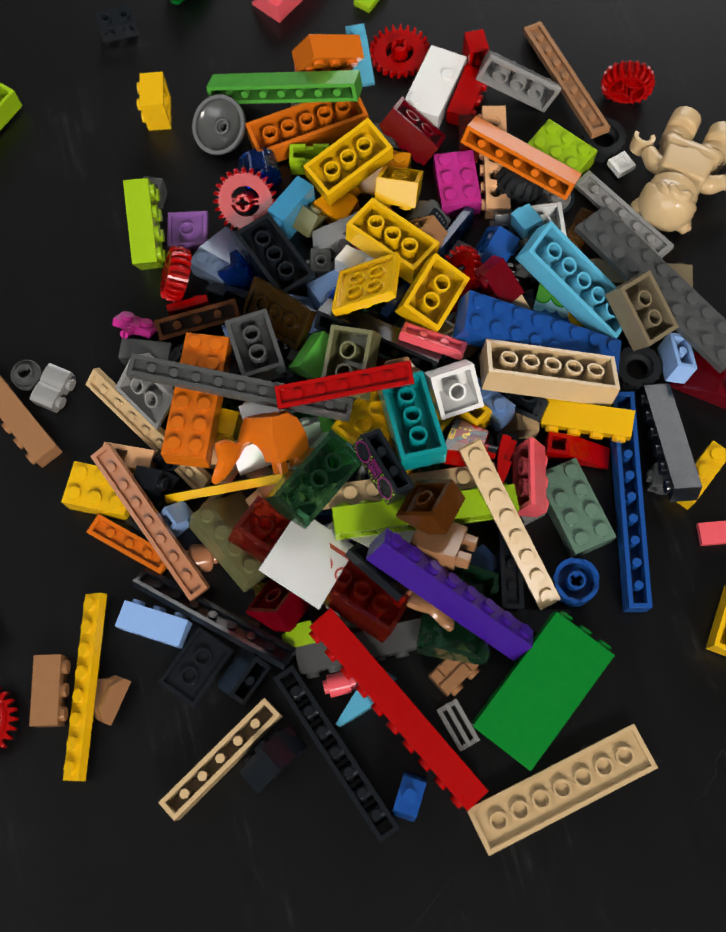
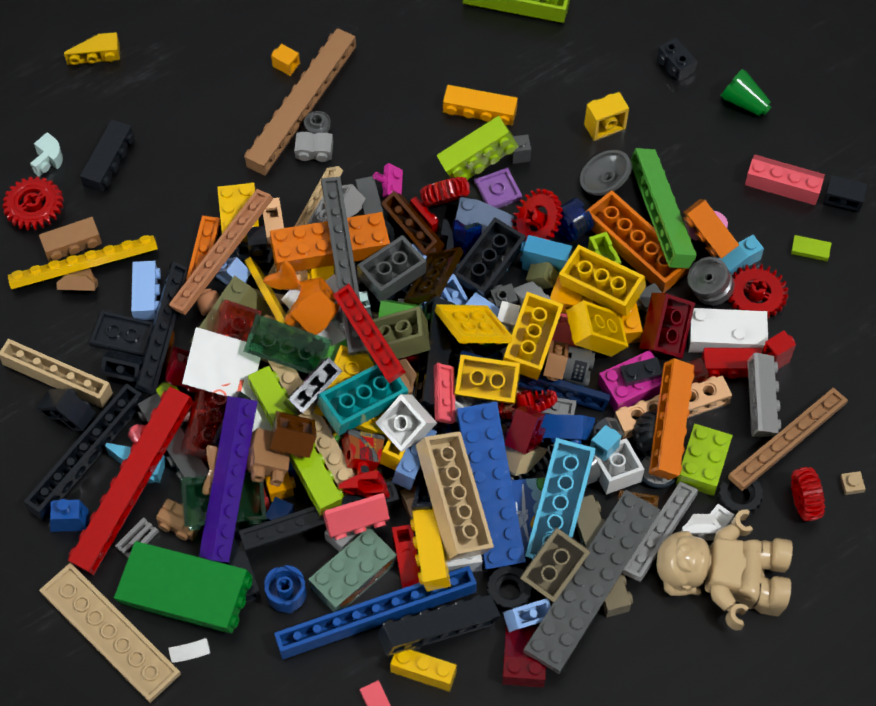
camera: 65 degrees right, 10 degrees down
(82, 212) = (479, 104): none -> light orange brick
(383, 67) = (711, 281): none -> flat silver wheel
(458, 167) = (641, 371): none -> black plate
(509, 523) = (304, 505): tan plate -> none
(605, 707) = (189, 651): none -> white sticker
(619, 50) = (852, 483): none -> tan plate
(629, 181) = (702, 526): none -> white slope

